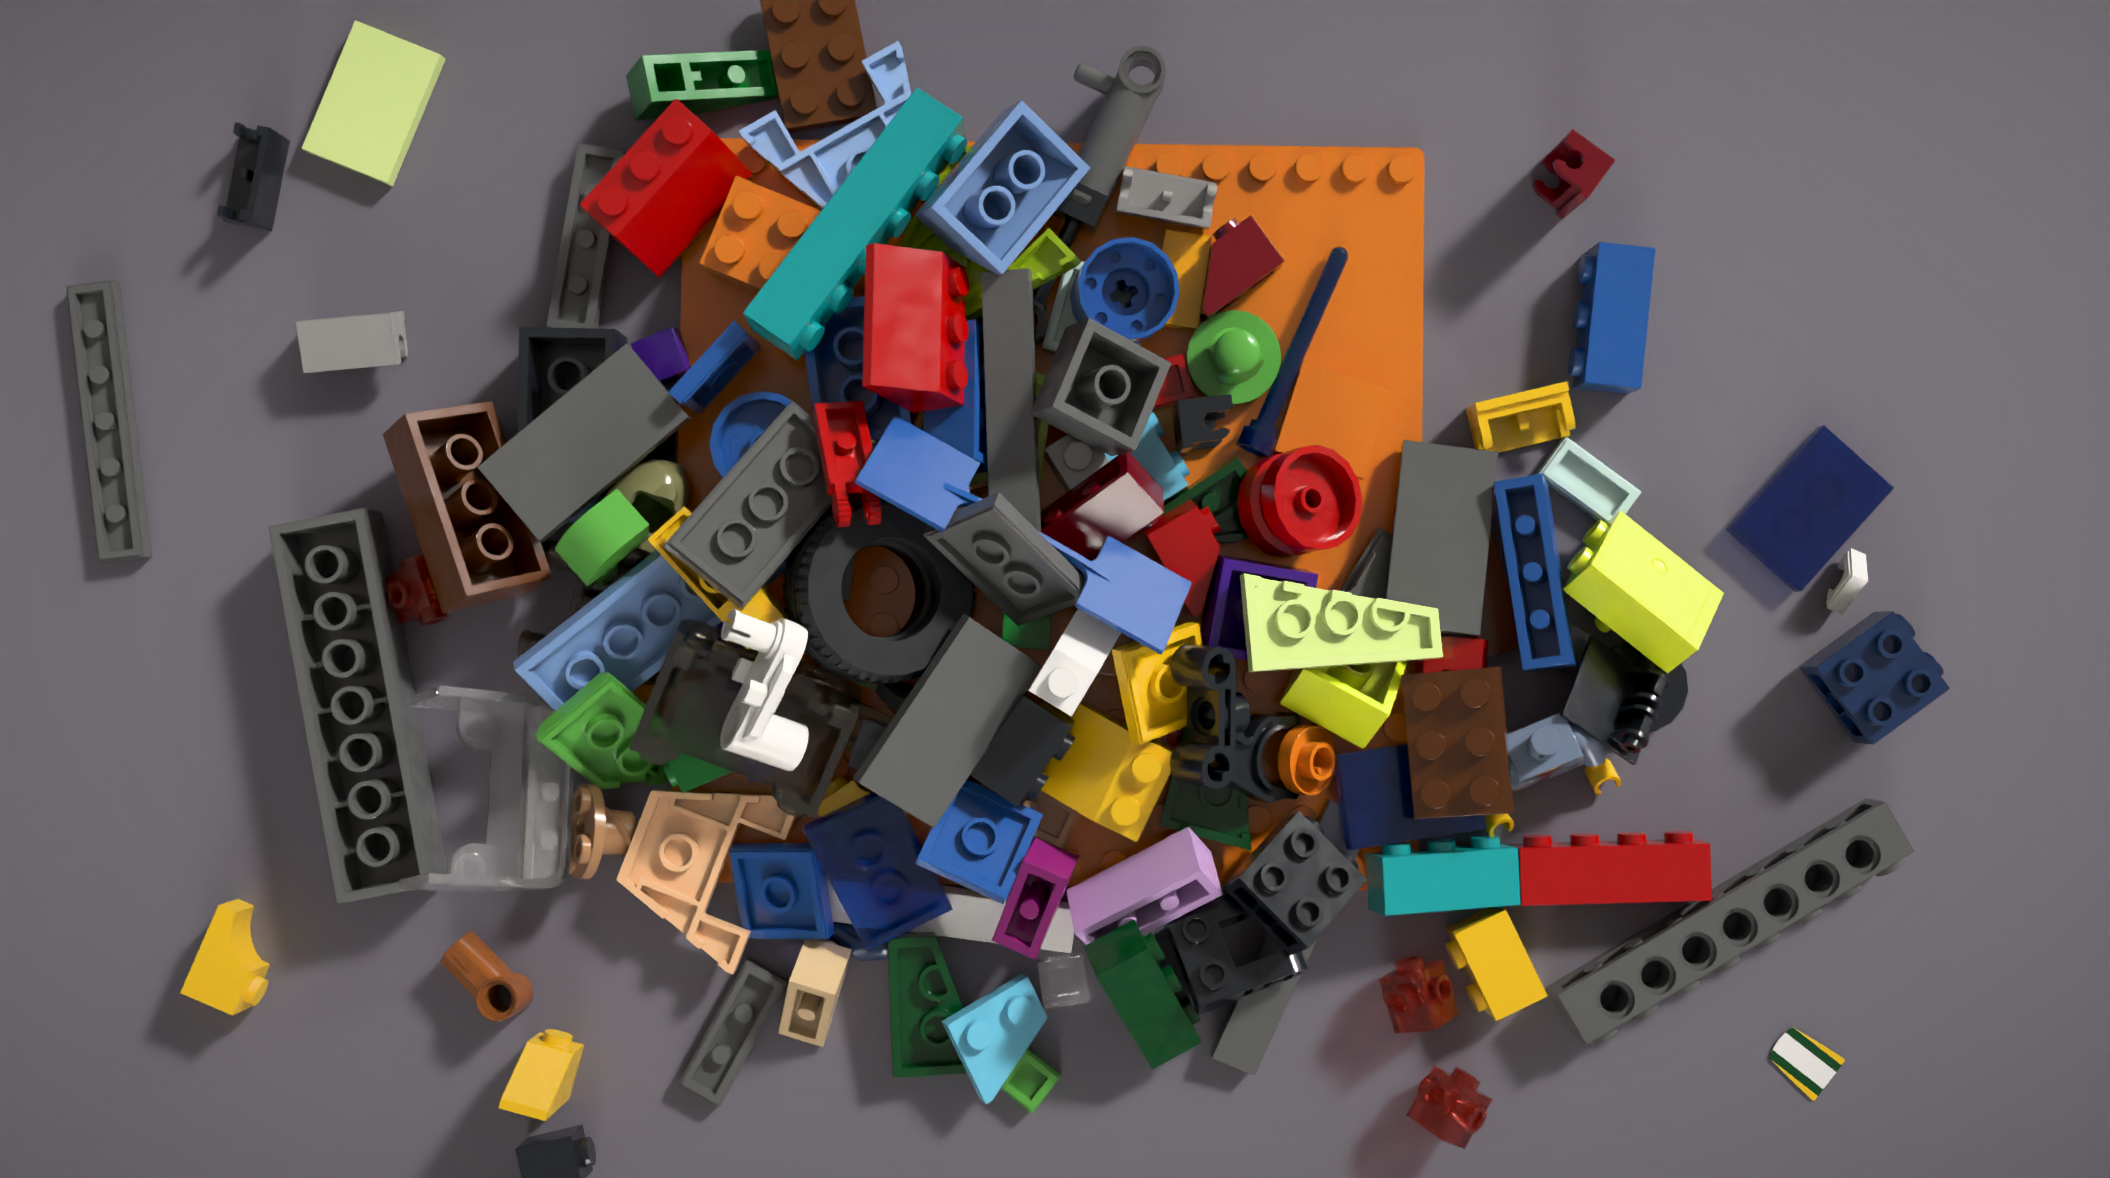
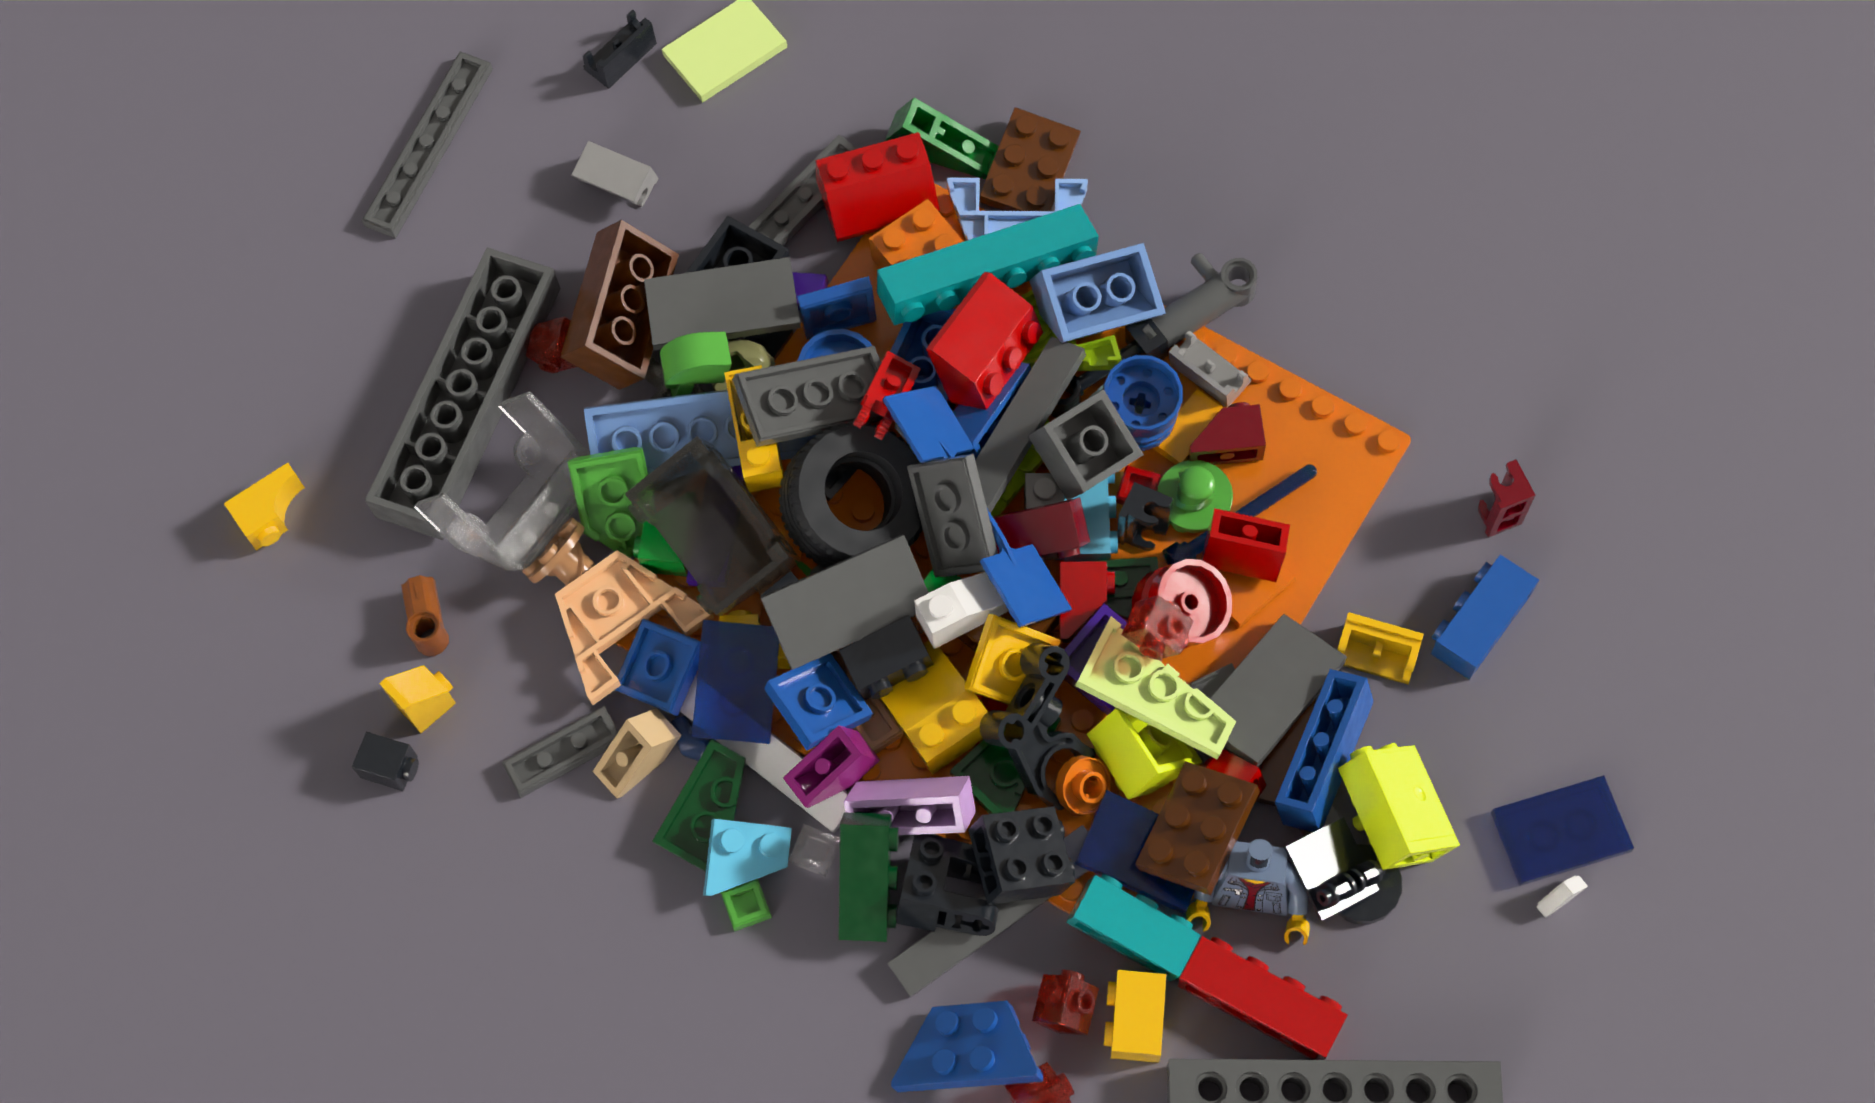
camera: 35 degrees right, 20 degrees down
(750, 723) = (712, 529): white piece -> none
(1318, 561) = (1158, 628): none -> clear red brick
(1330, 394) = (1246, 545): none -> red brick
(1350, 1100) = (967, 1049): none -> blue wing
(1587, 481) = (1404, 719): light aqua tile -> none
(1875, 676) = (1544, 970): dark blue brick -> none

